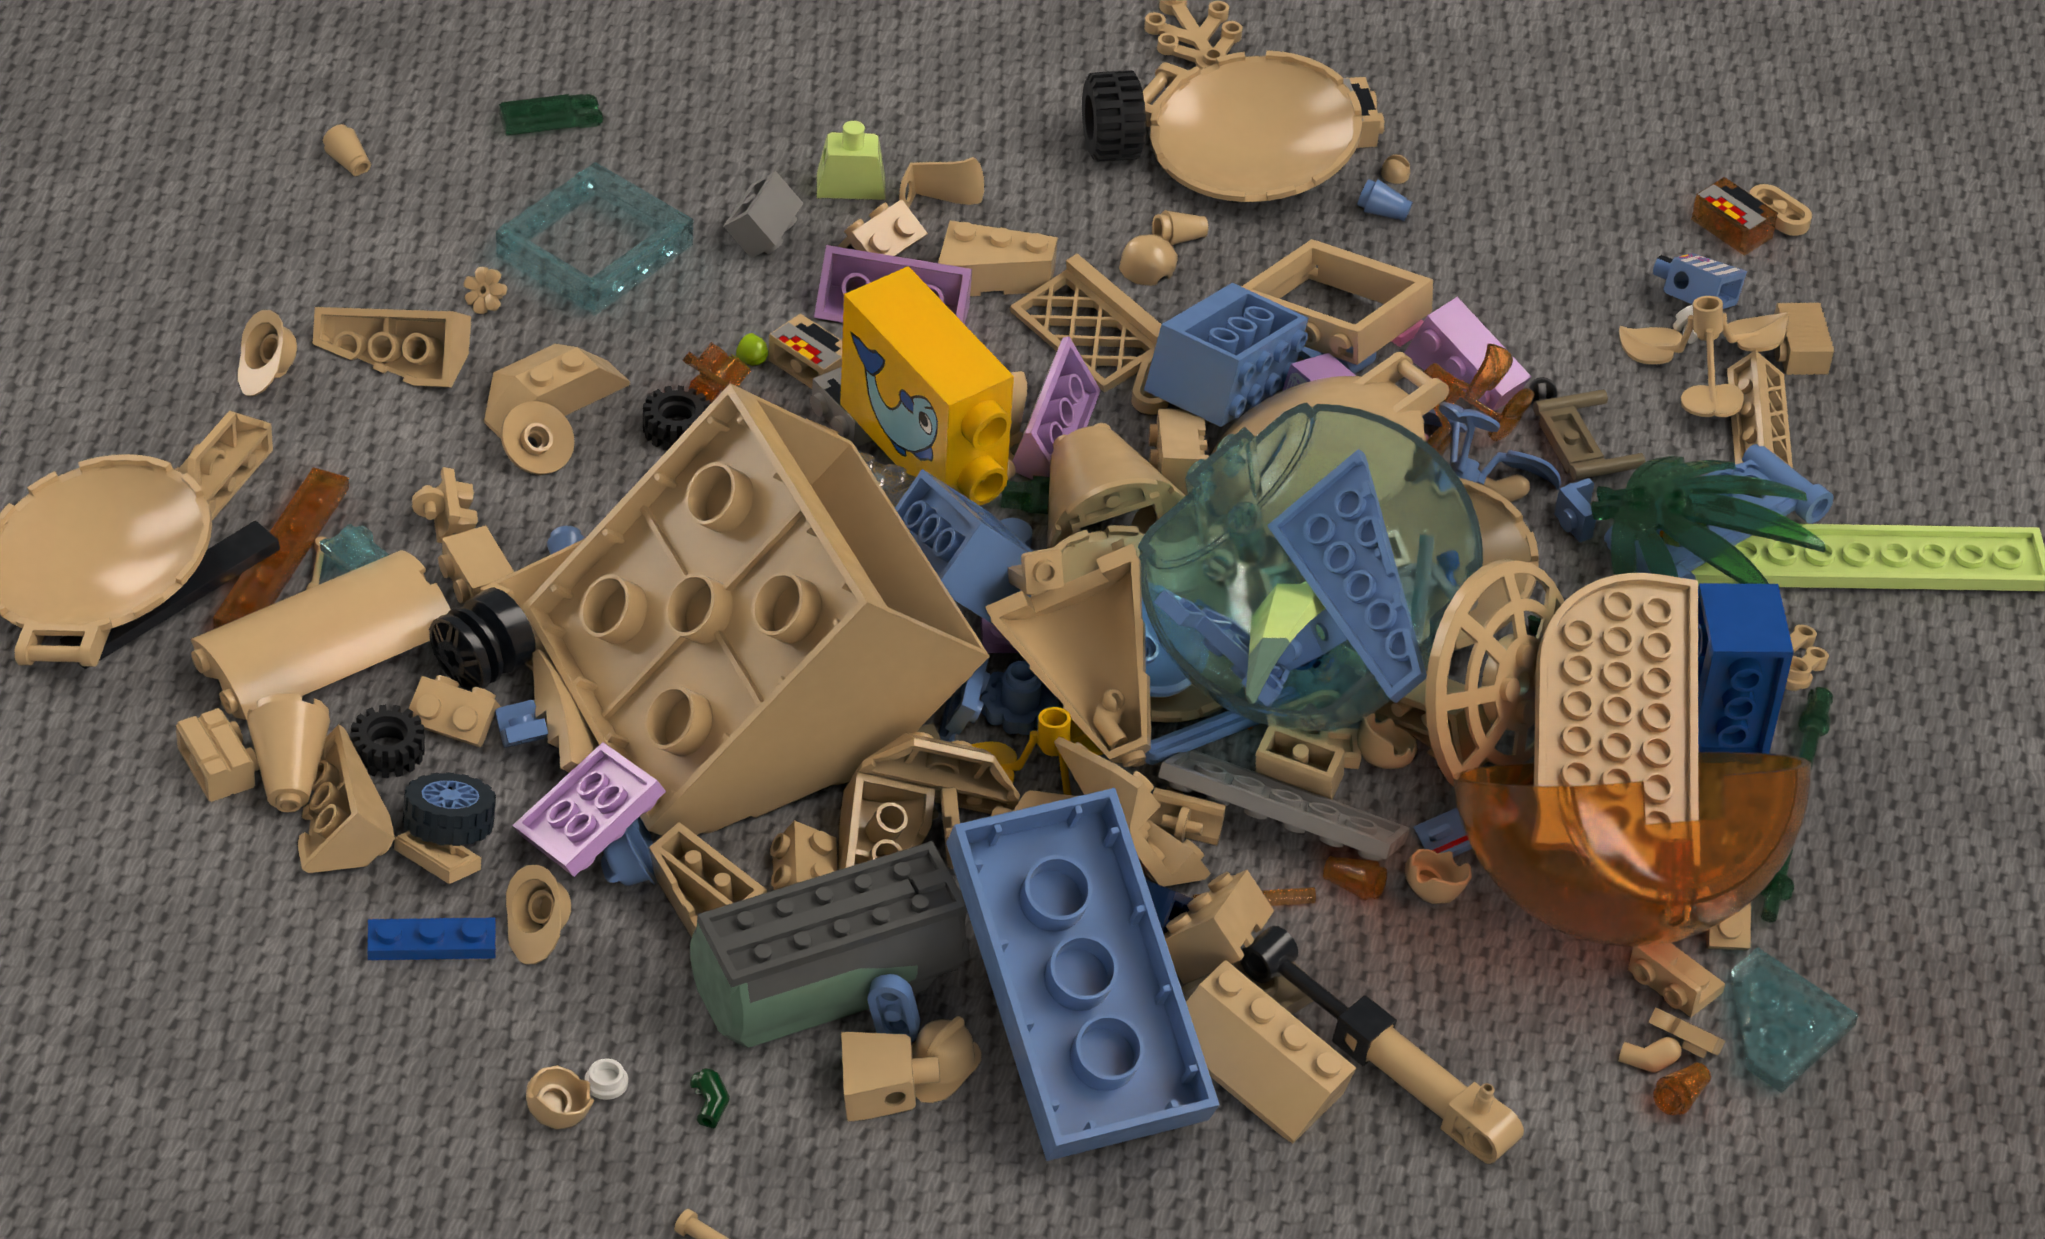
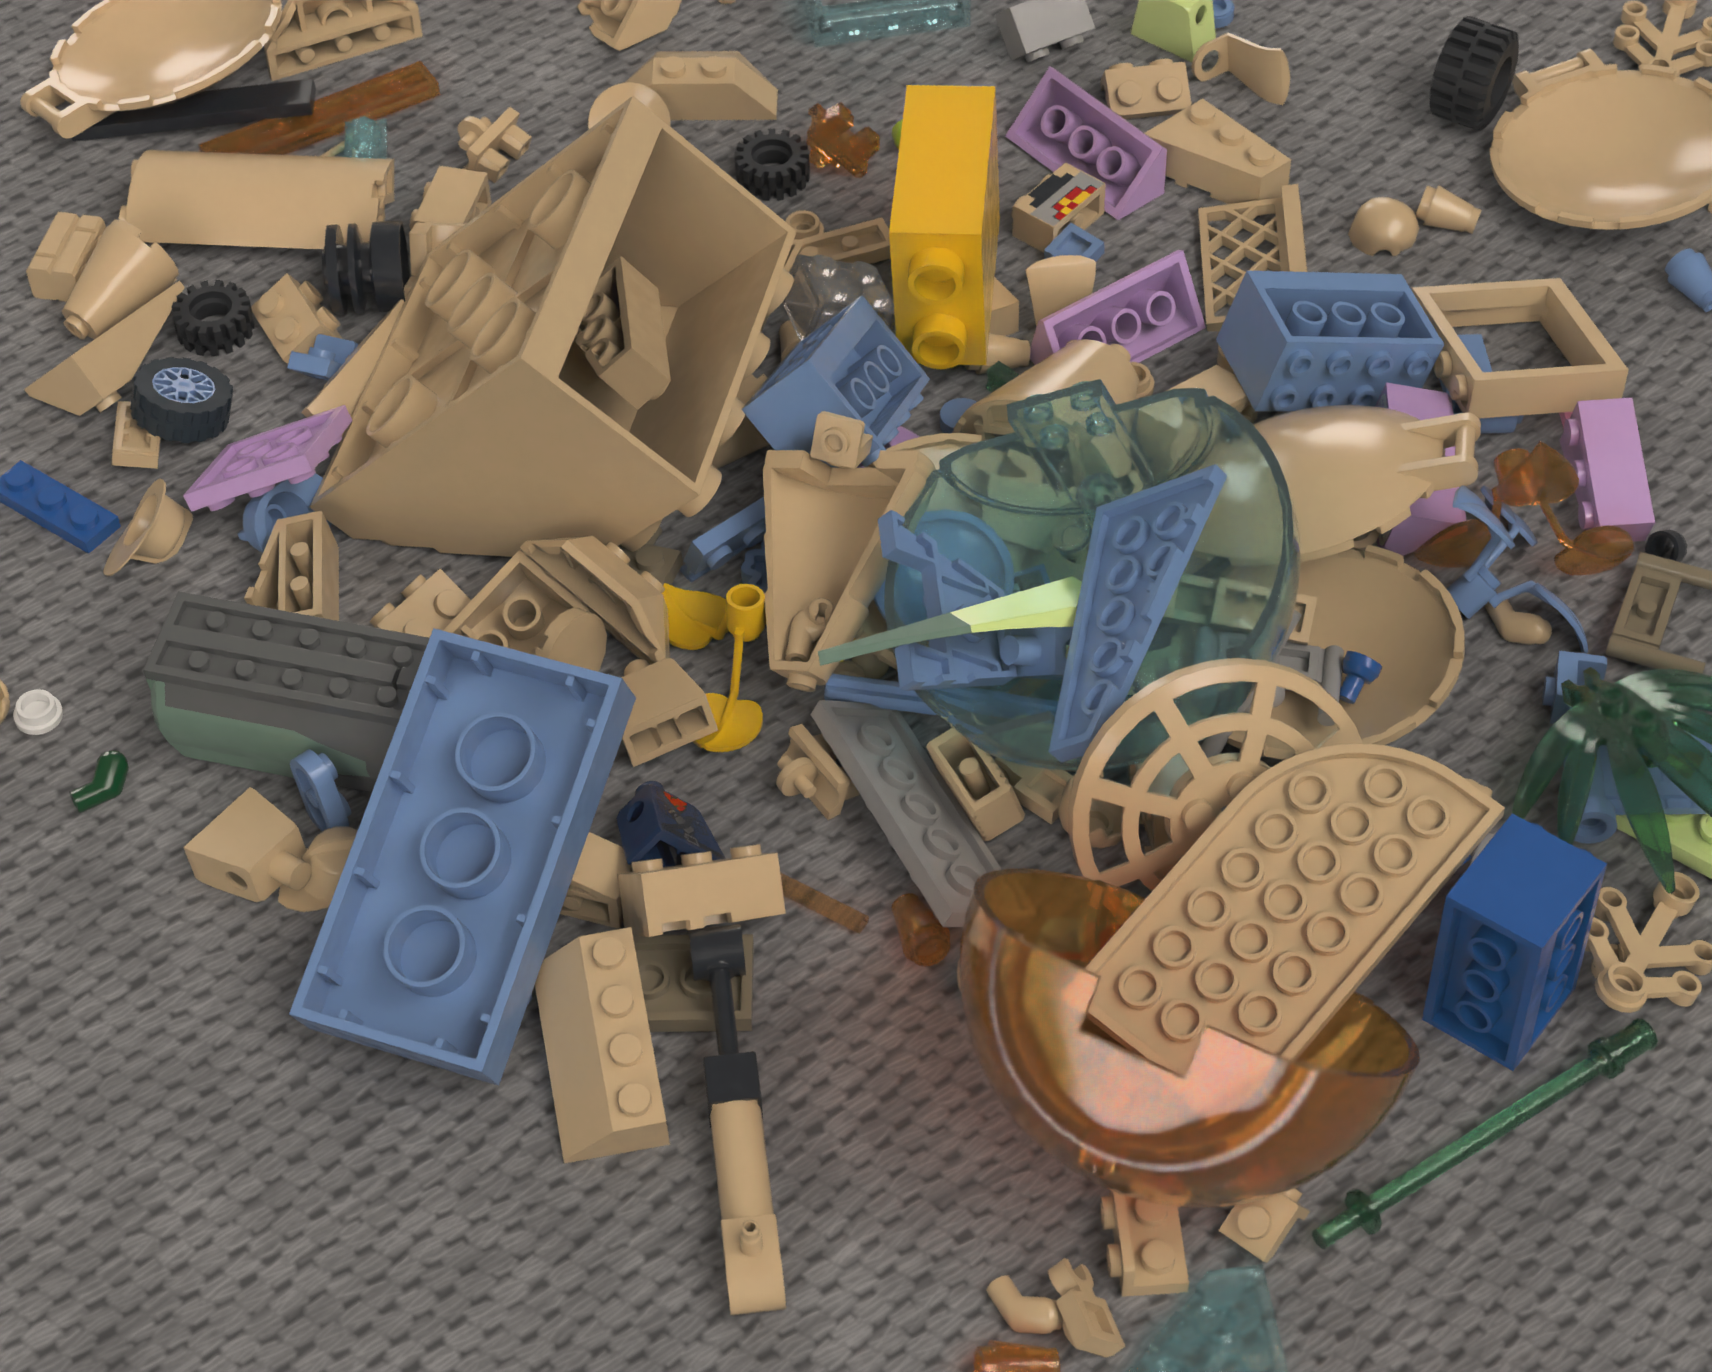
camera: 45 degrees right, 5 degrees up
(1160, 854) = (725, 738): tan wedge -> none

